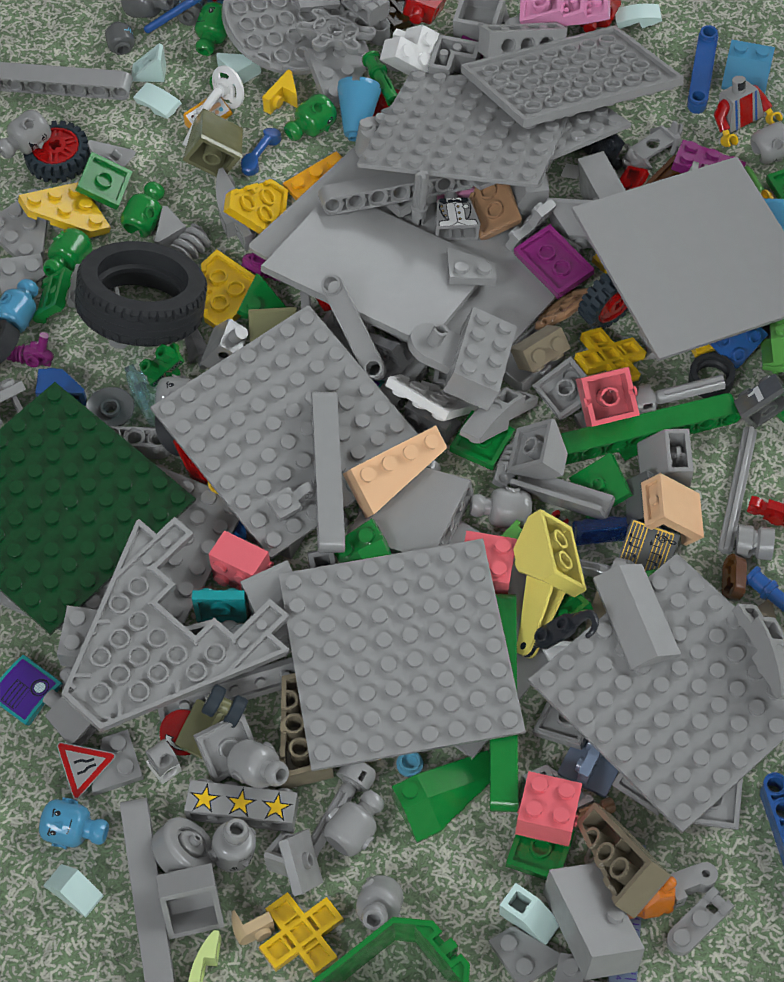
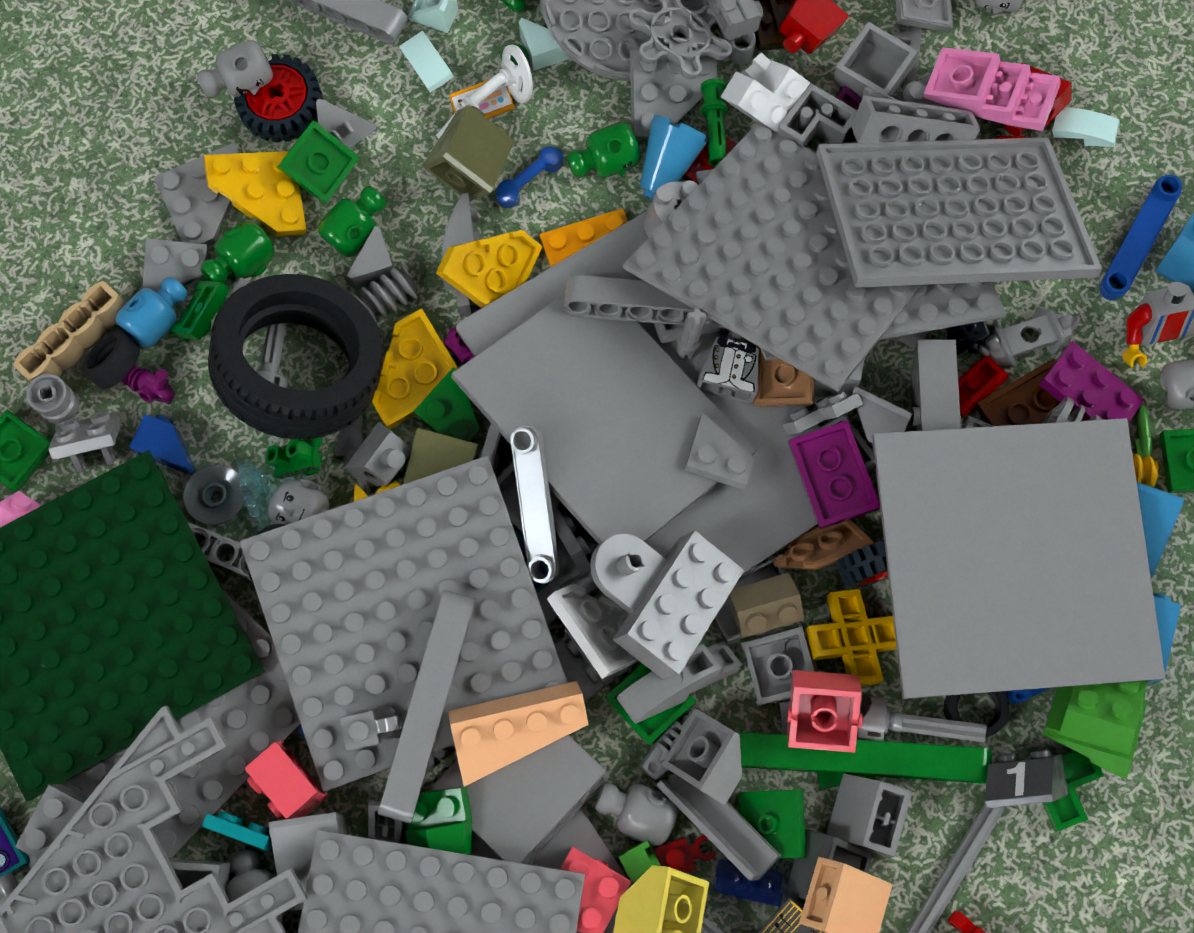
camera: 20 degrees right, 15 degrees up
(281, 91) = (586, 96): yellow slope -> none

